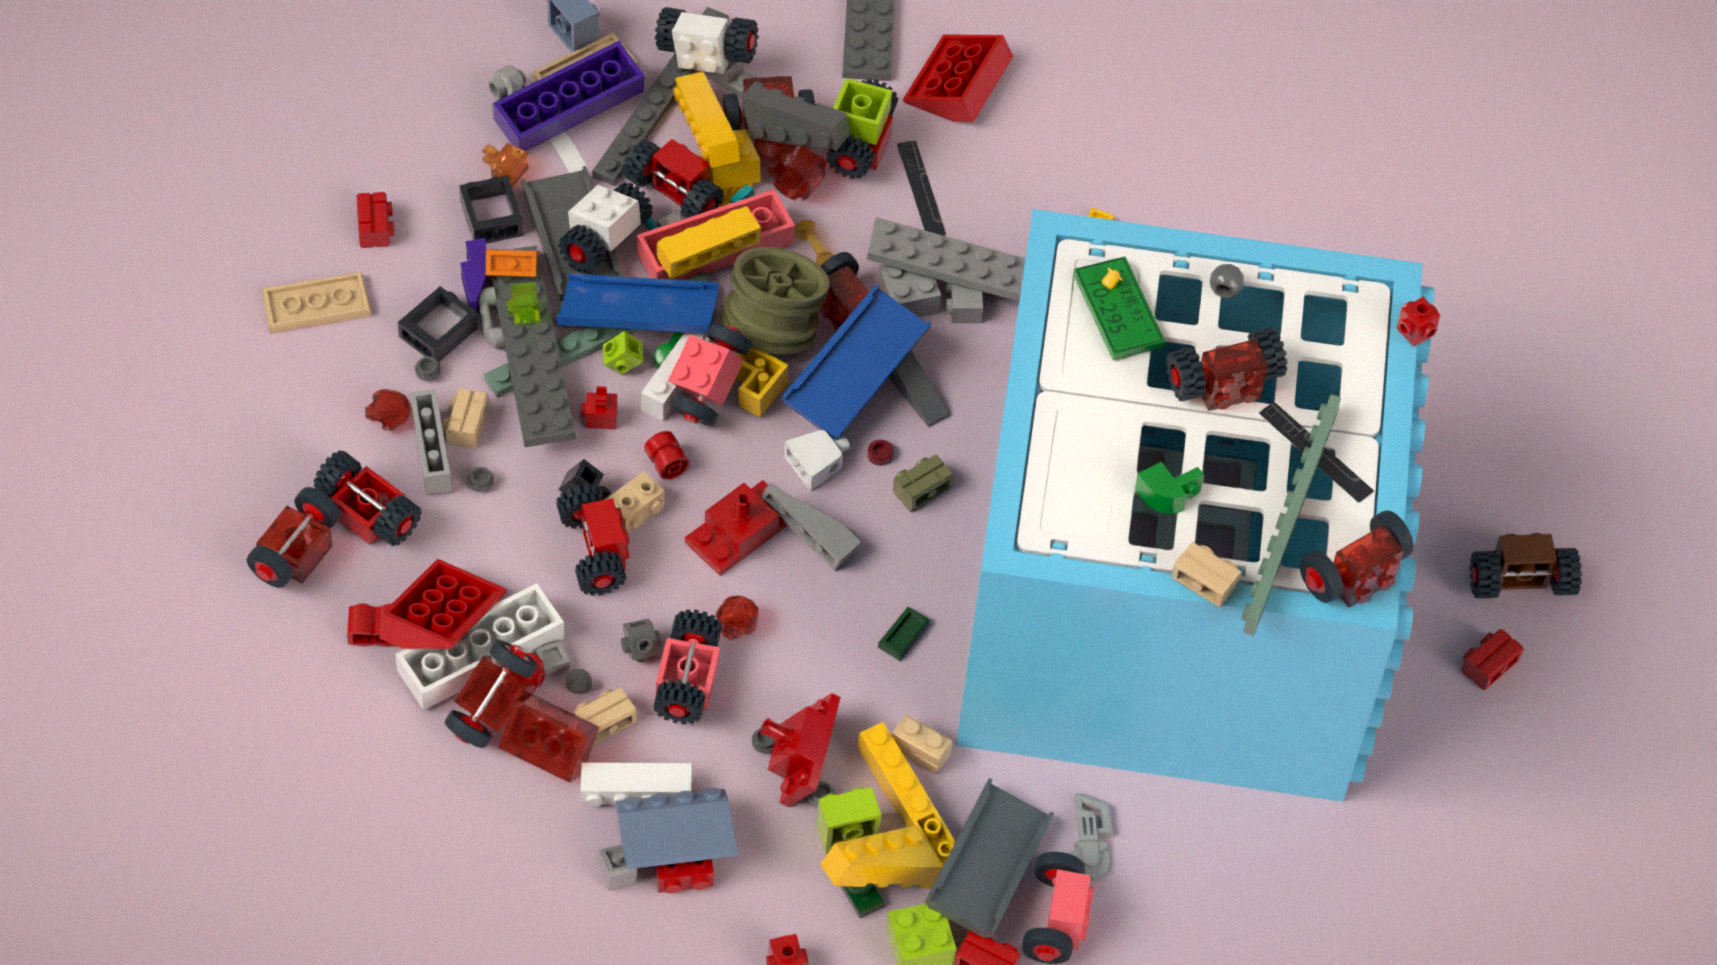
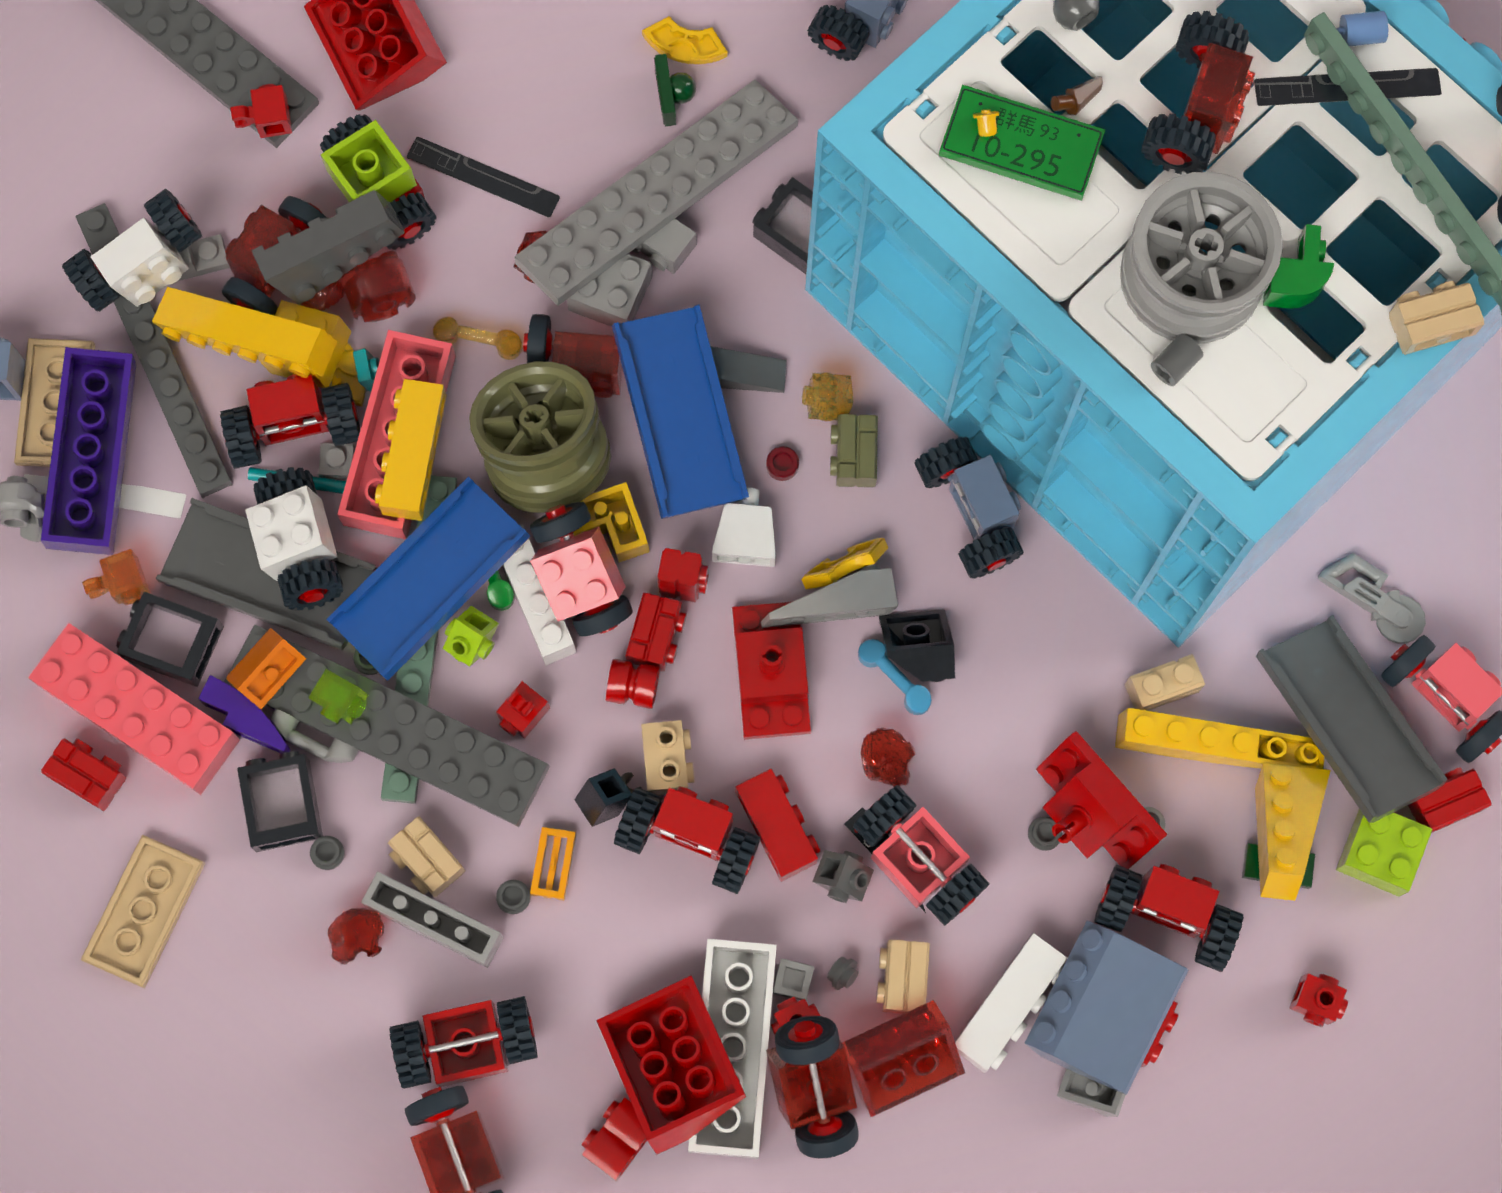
camera: 50 degrees left, 20 degrees up
(433, 219) = (134, 708): none -> coral brick
(522, 491) = (548, 892): none -> light orange tile
(644, 586) = (777, 824): none -> red brick
(711, 448) = (655, 631): none -> red brick
(756, 433) = (682, 575): none -> red brick
(777, 829) = (1175, 904): none -> brick
(791, 613) = (917, 698): none -> dark azure bar
(826, 593) = (920, 644): none -> black slope
(847, 520) = (857, 557): none -> yellow tile
(847, 816) = (1209, 824): lime brick -> none
(856, 51) = (268, 112): none -> red brick
(903, 633) = (1015, 602): dark green tile -> none
(943, 442) = (828, 396): none -> clear yellow brick
(947, 566) = (982, 501): none -> brick
(1056, 459) = (1177, 359): none -> dark grey piece
(1126, 402) = (1242, 220): none -> light grey wheel
(1173, 317) = (1077, 96): none -> reddish brown bar
(1357, 432) = (1364, 28): none -> medium blue piece

